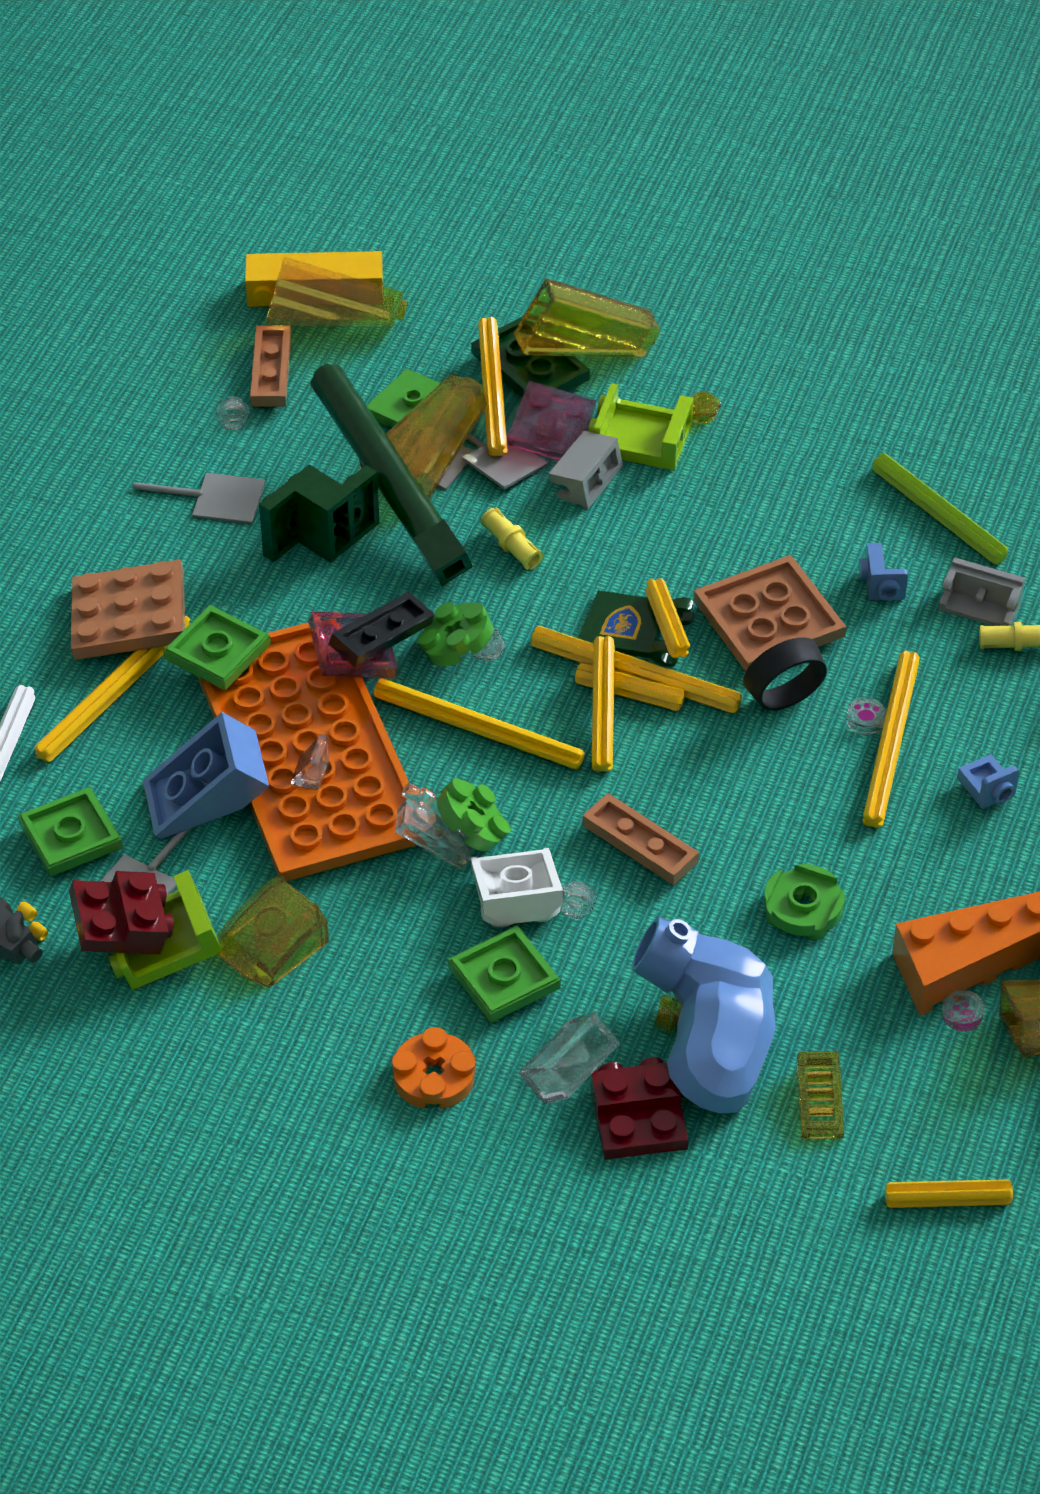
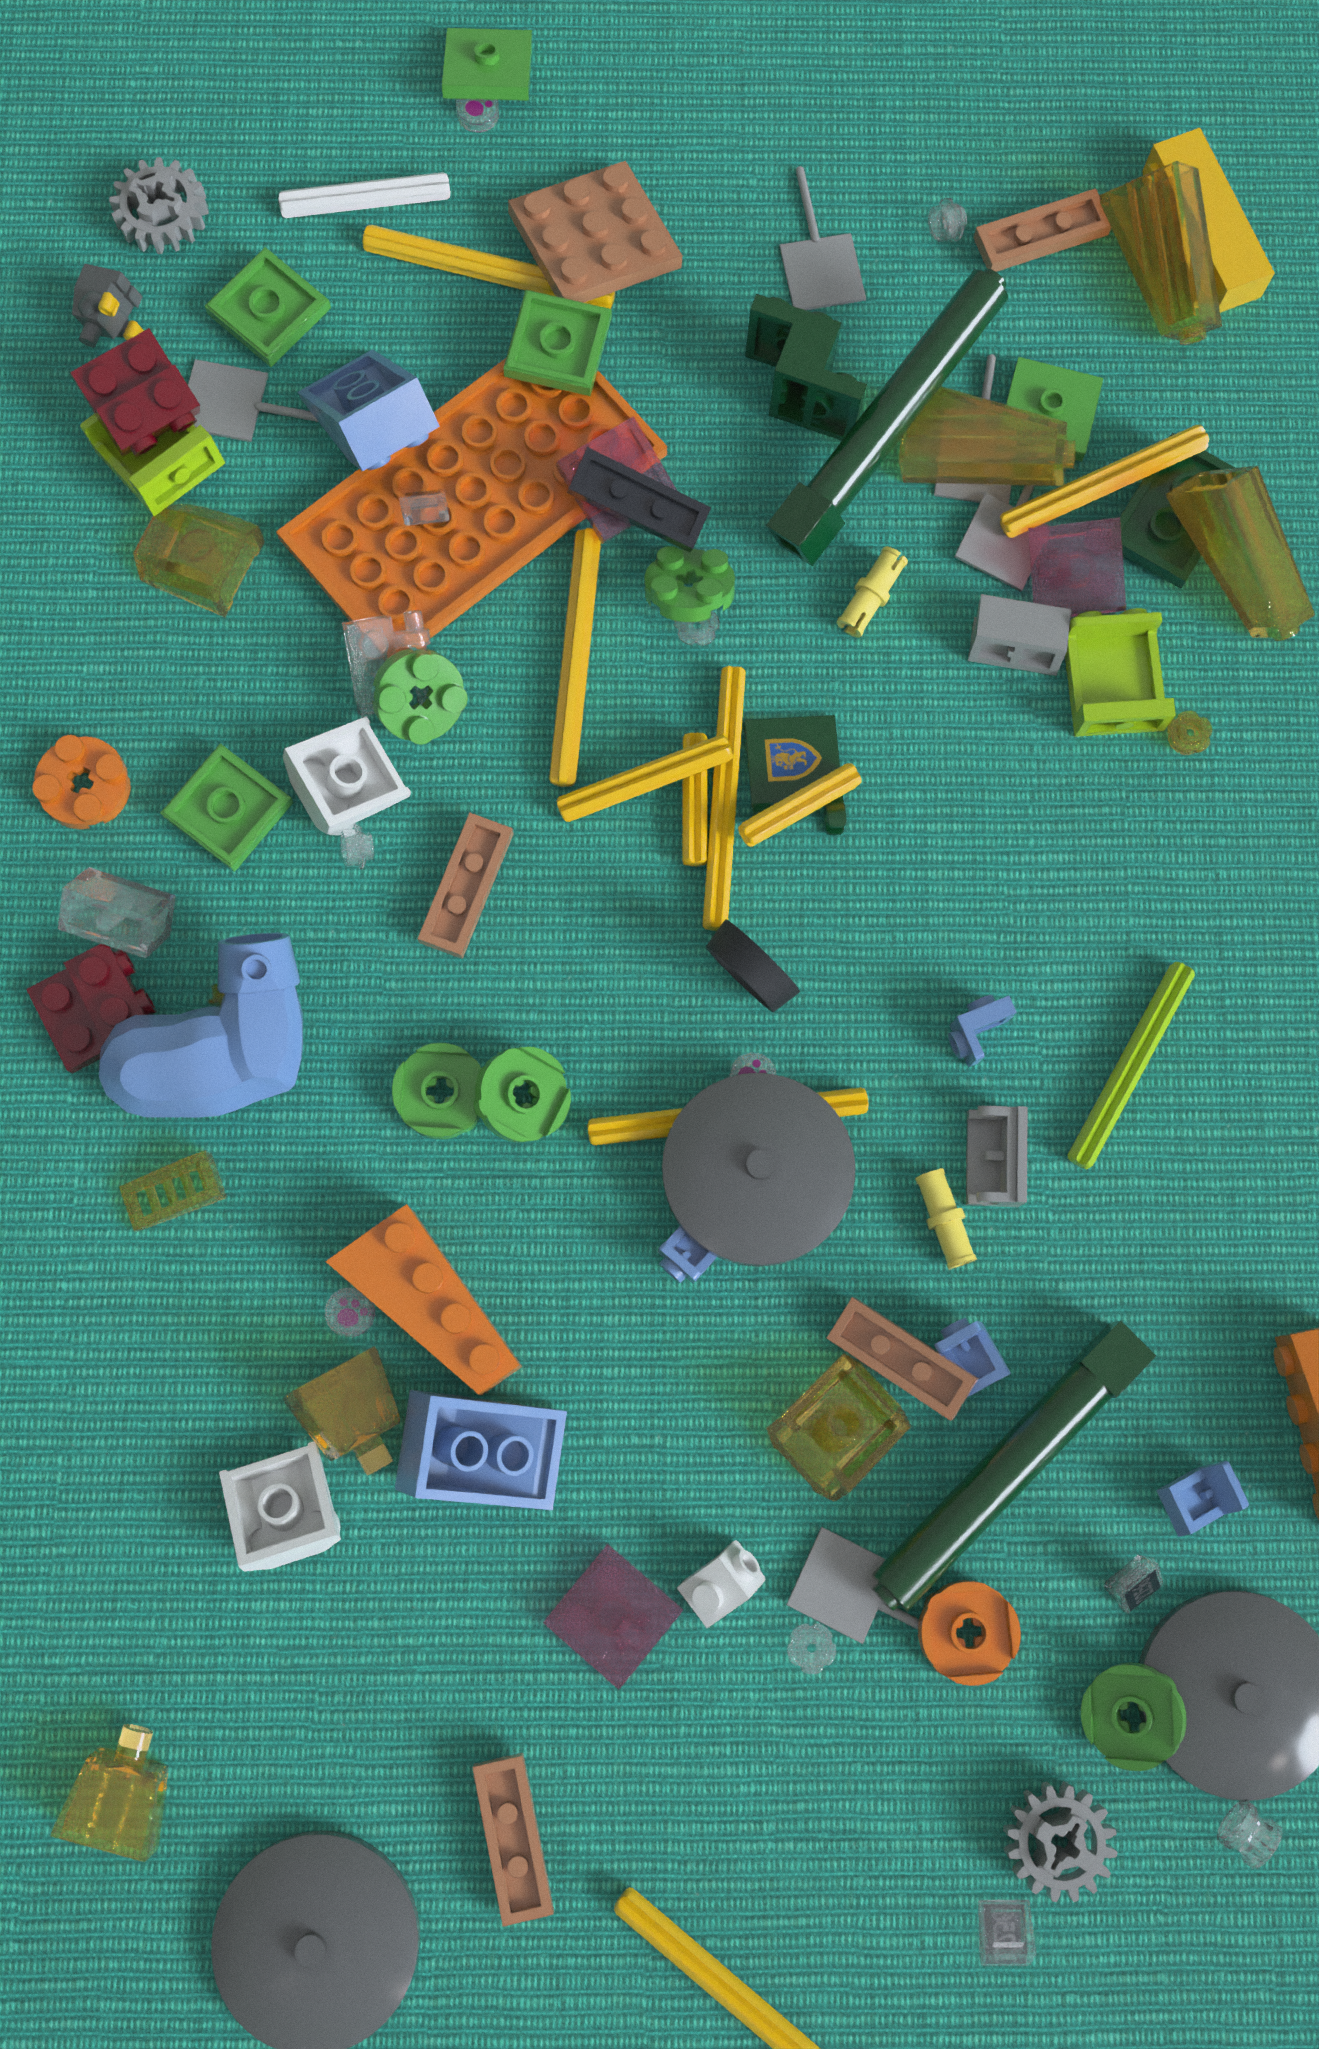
camera: 65 degrees right, 30 degrees up
(767, 608) = (867, 918): nougat plate -> none
(829, 845) = (495, 1097): none -> bright green plate
(943, 721) = (758, 1169): none -> dark grey dish
(948, 1193) = (88, 1366): yellow axle -> none

